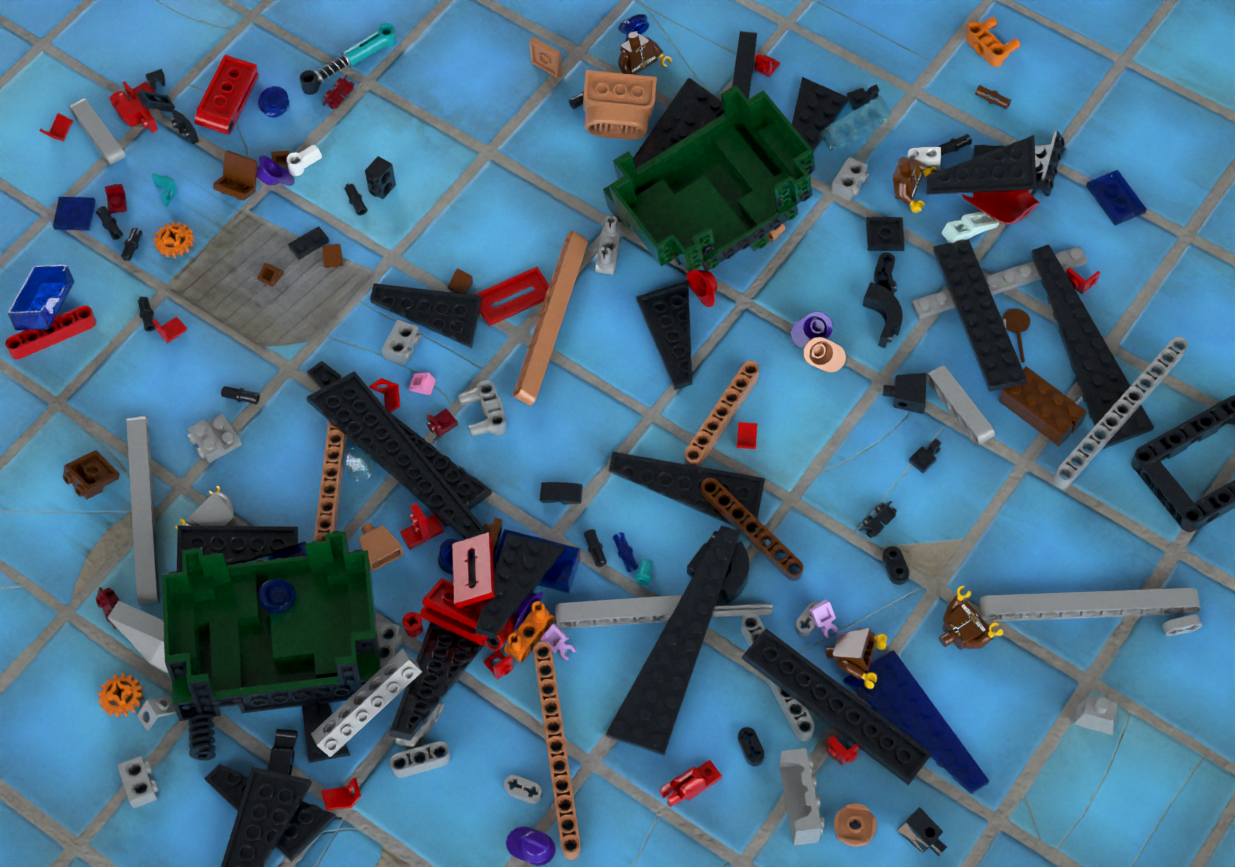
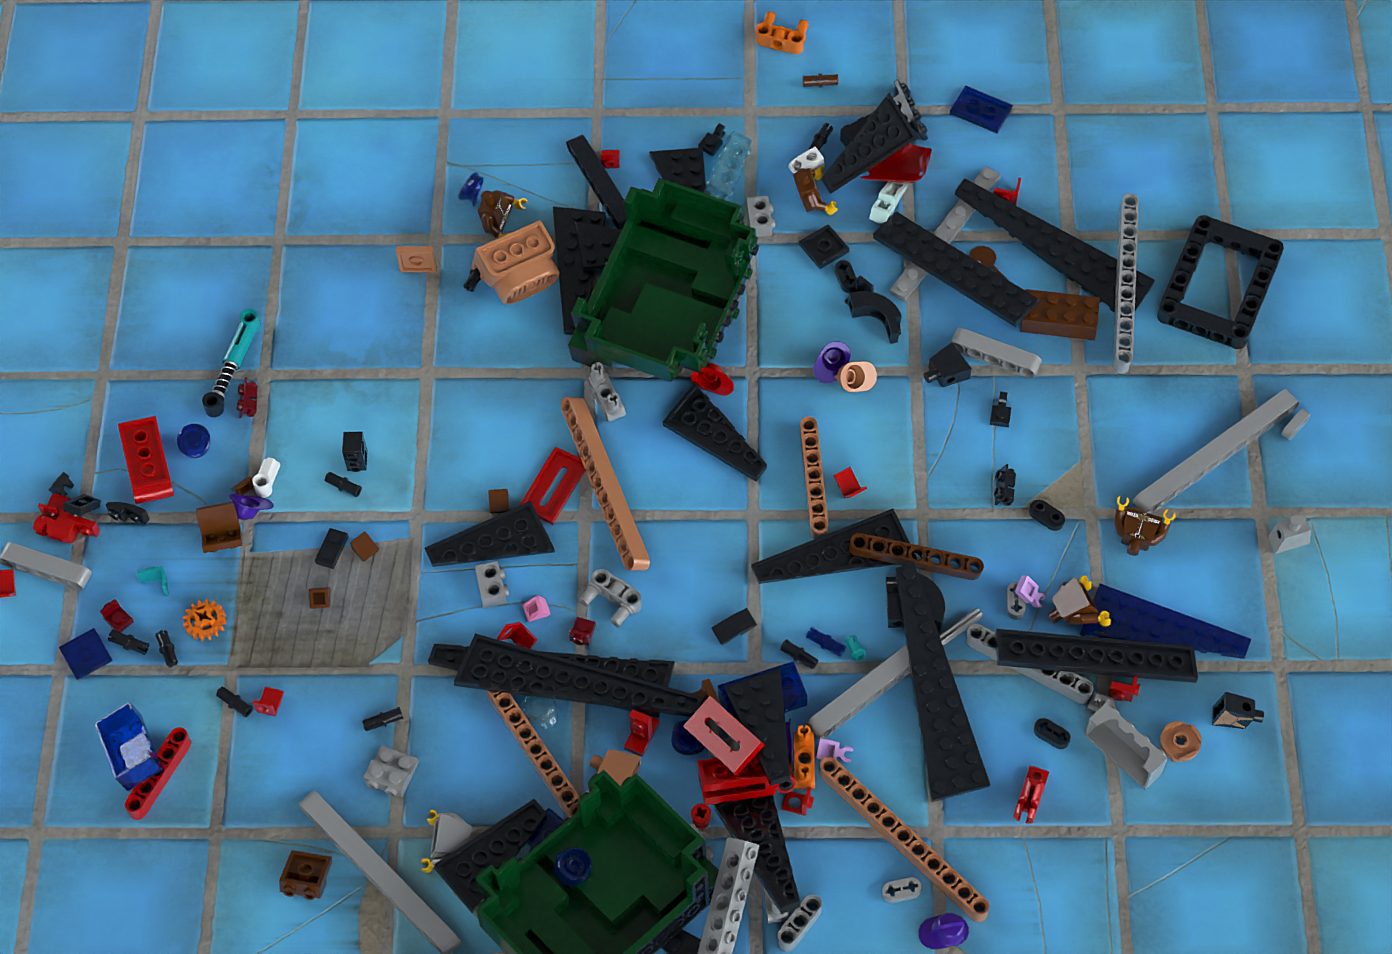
camera: 35 degrees left, 0 degrees up
(813, 748) = (1097, 702): none -> light grey tile

